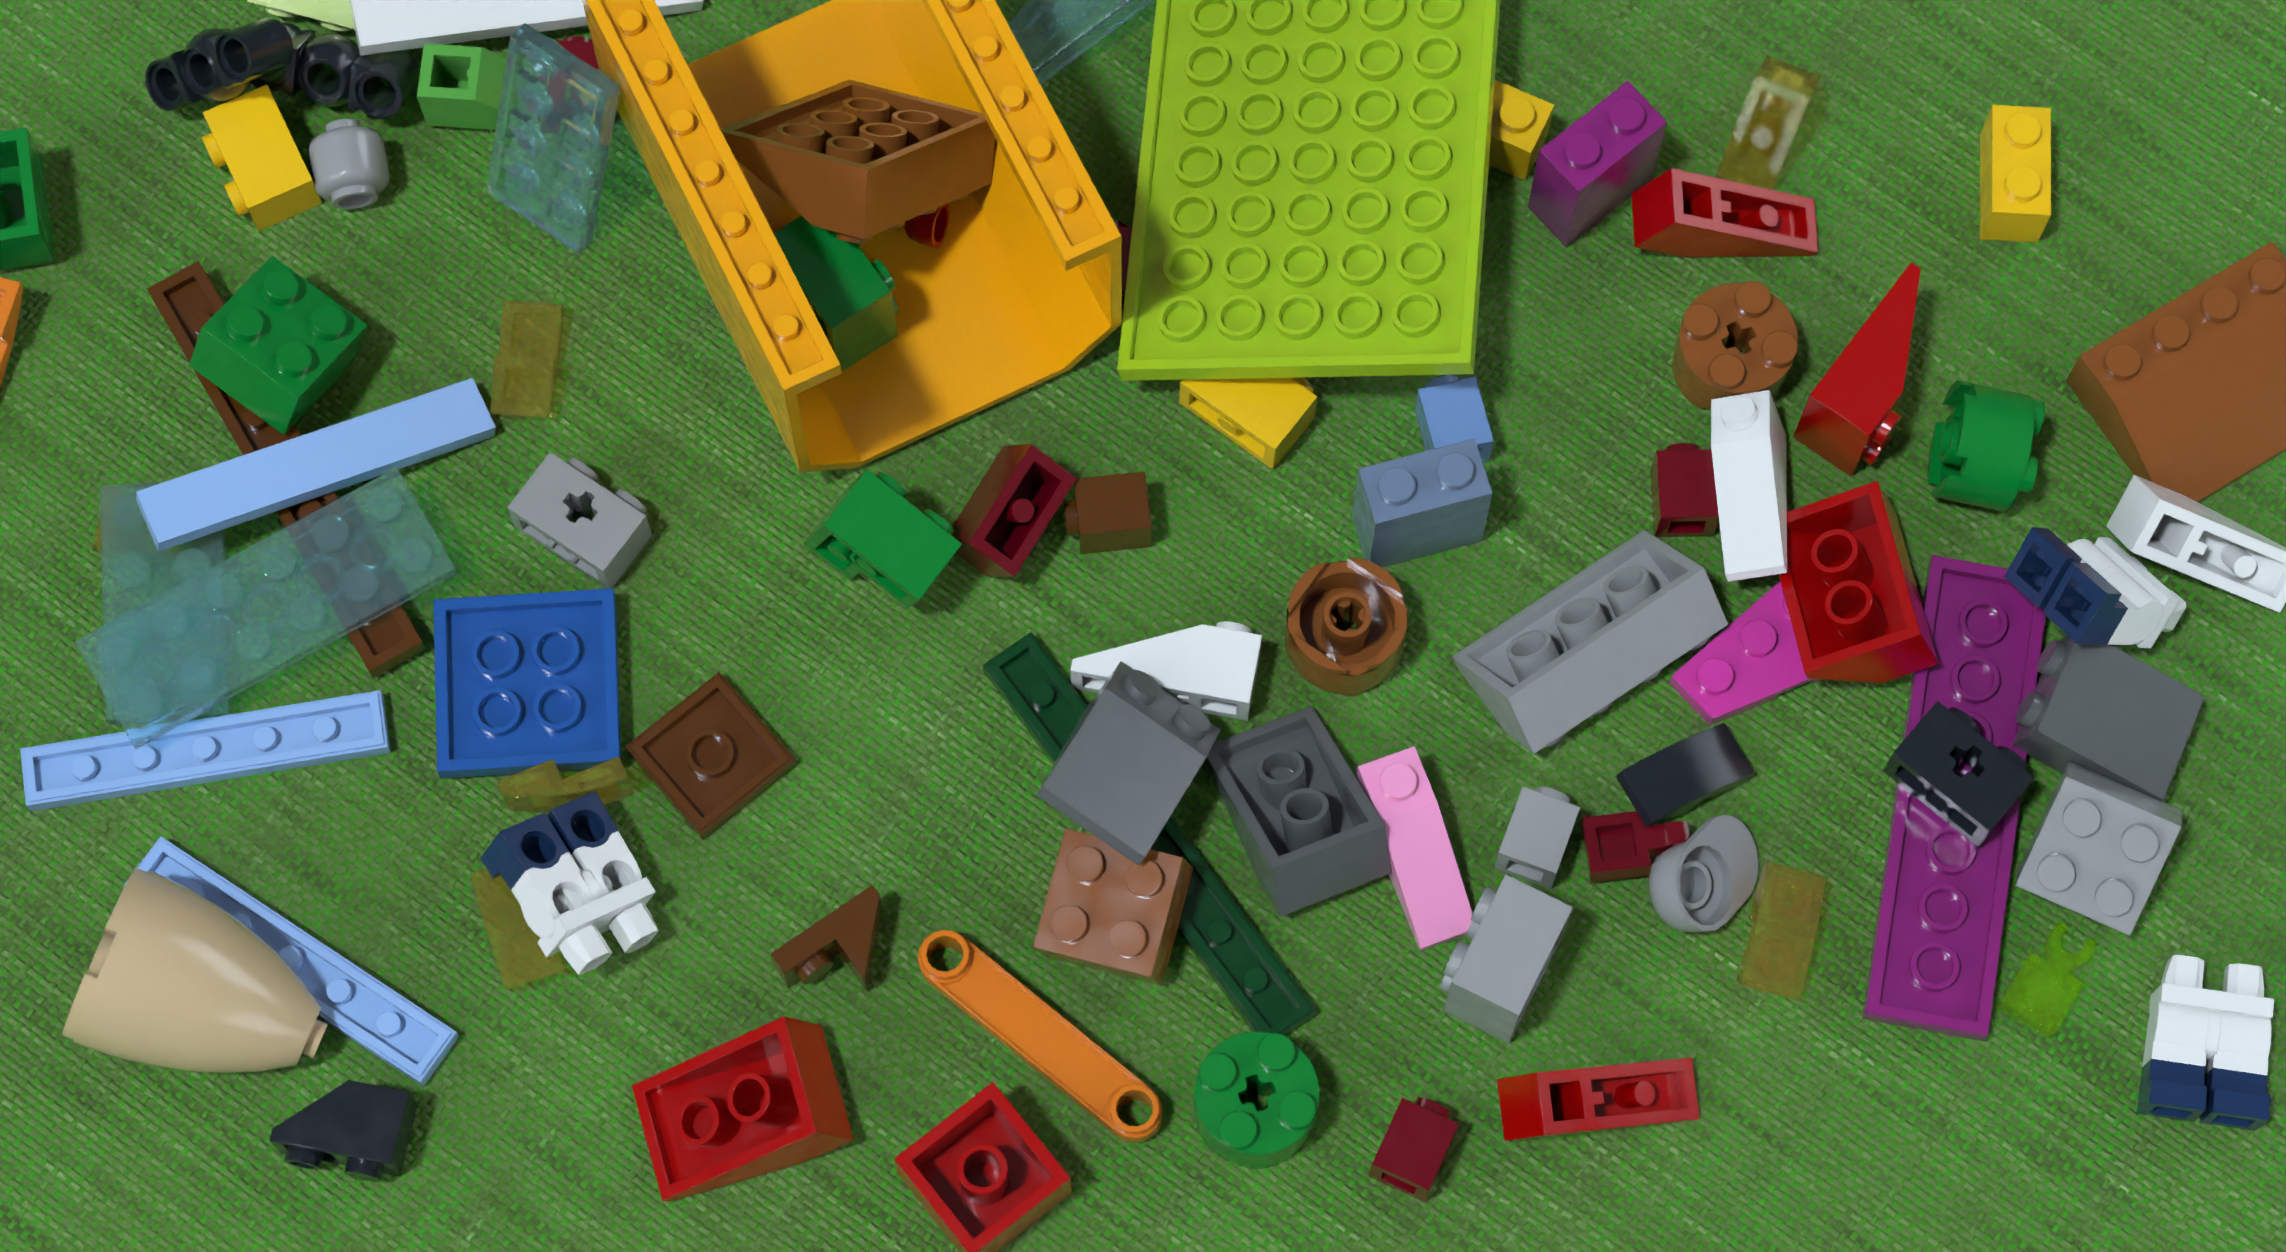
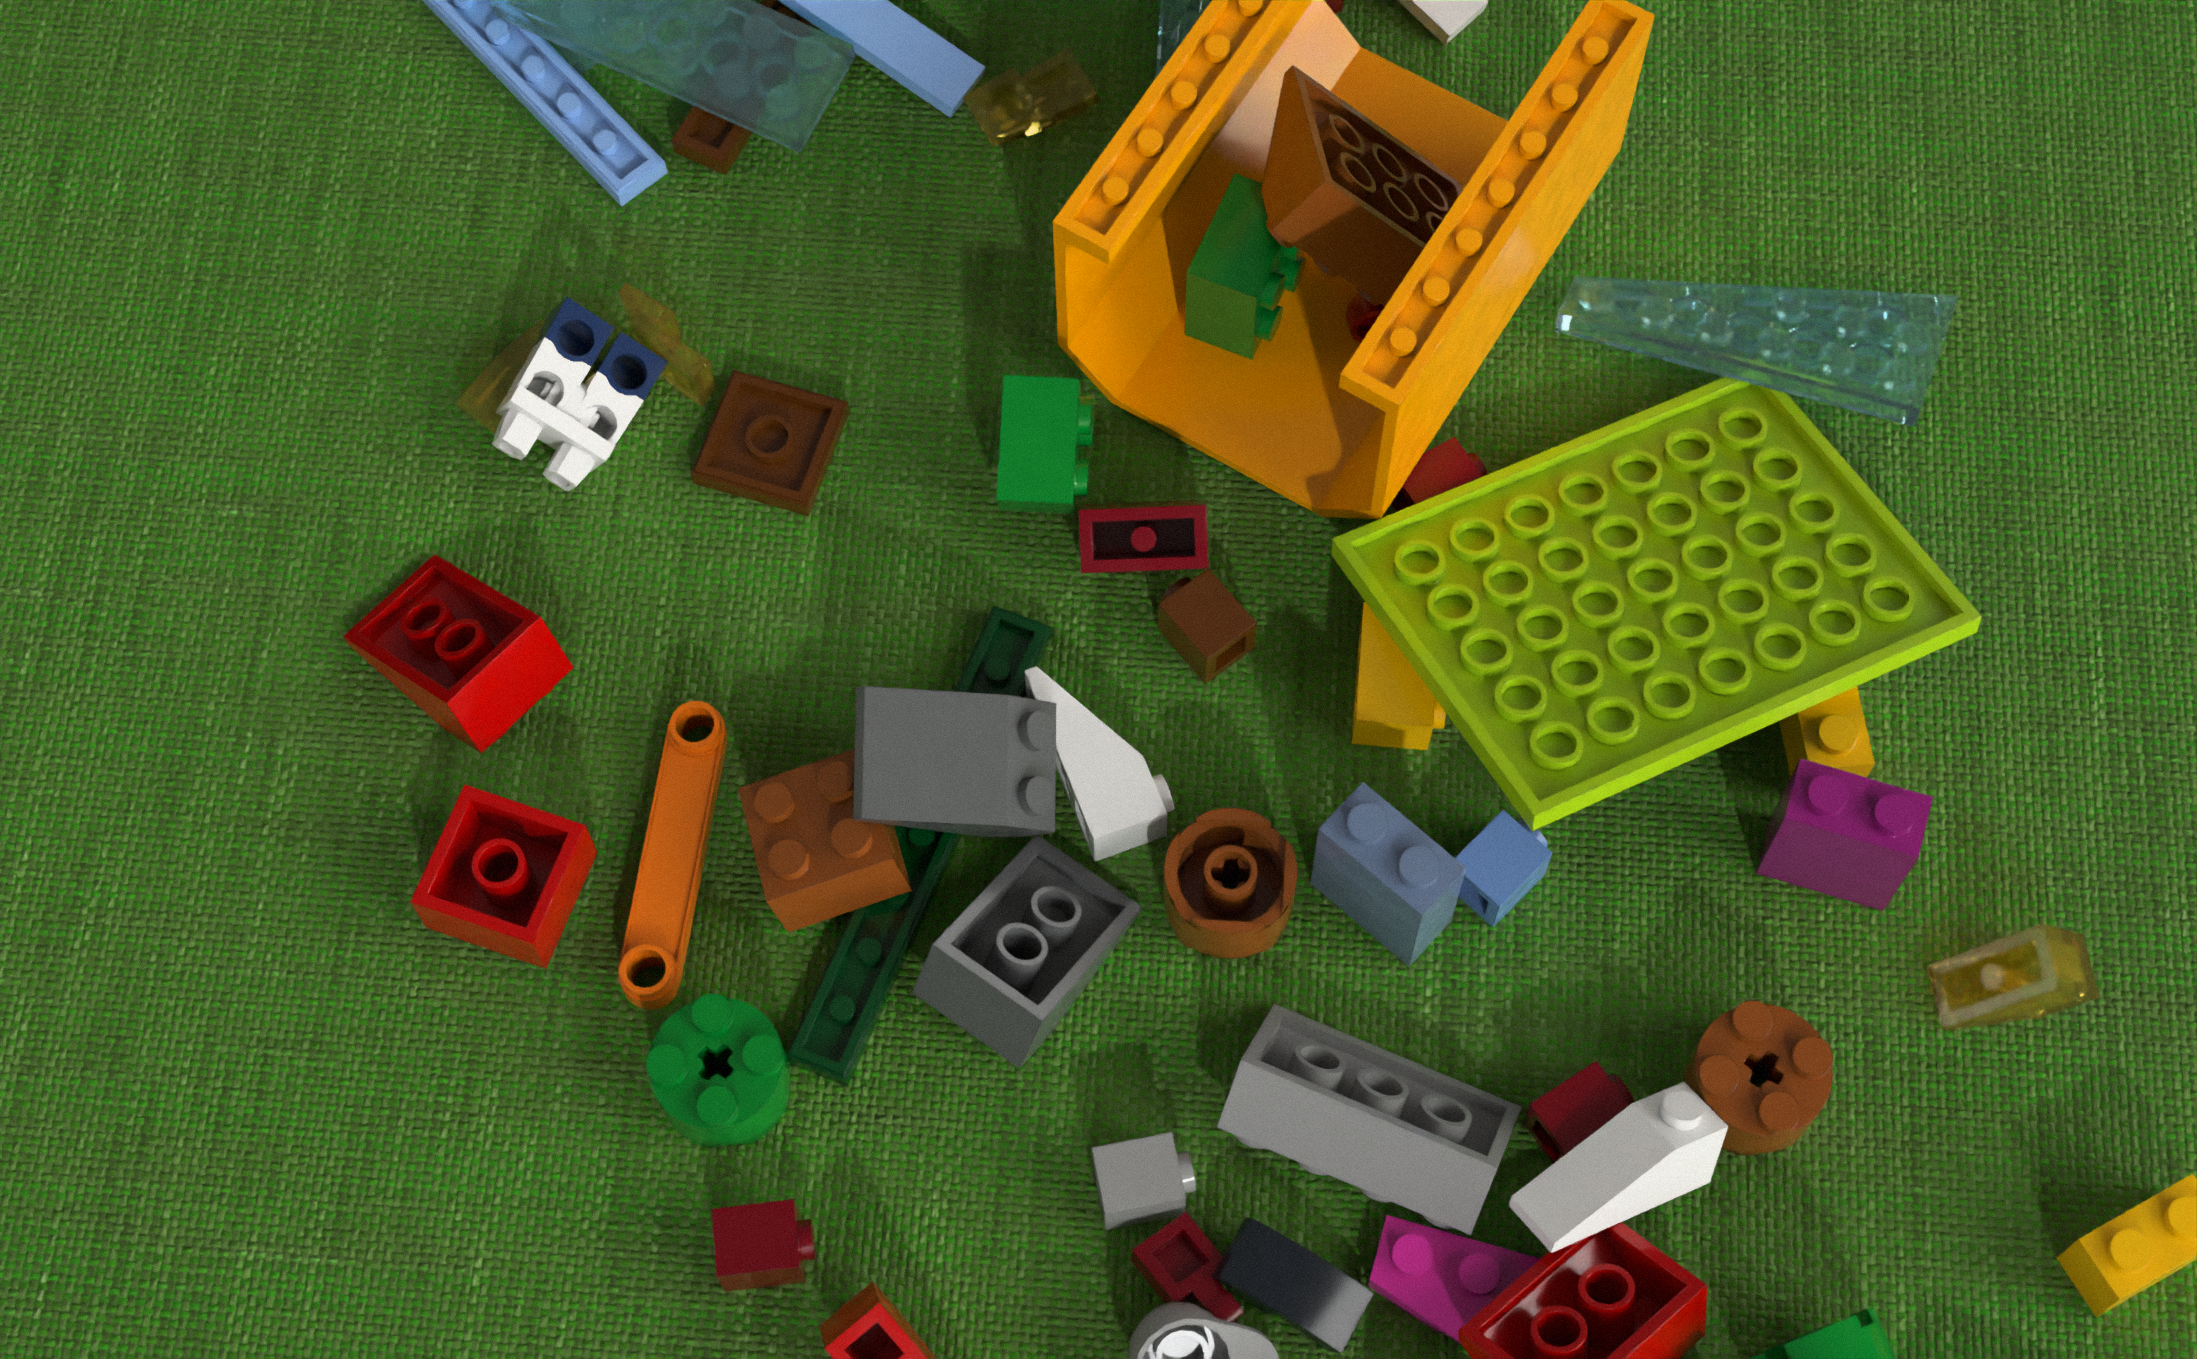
camera: 60 degrees right, 5 degrees down
(190, 988) = (302, 156): tan cylinder -> none
(347, 994) = (390, 241): light blue tile -> none
(350, 1127) = (266, 363): black slope -> none
(526, 682) = (741, 263): blue plate -> none
(595, 547) = (911, 216): light grey brick -> none
(845, 931) = (667, 638): reddish brown slope -> none
(1418, 848) = (1058, 1075): bright pink slope -> none
(1509, 953) = (988, 1214): light grey brick -> none
(1721, 218) = (1886, 993): red slope -> none
(1855, 401) = (1801, 1217): red slope -> none

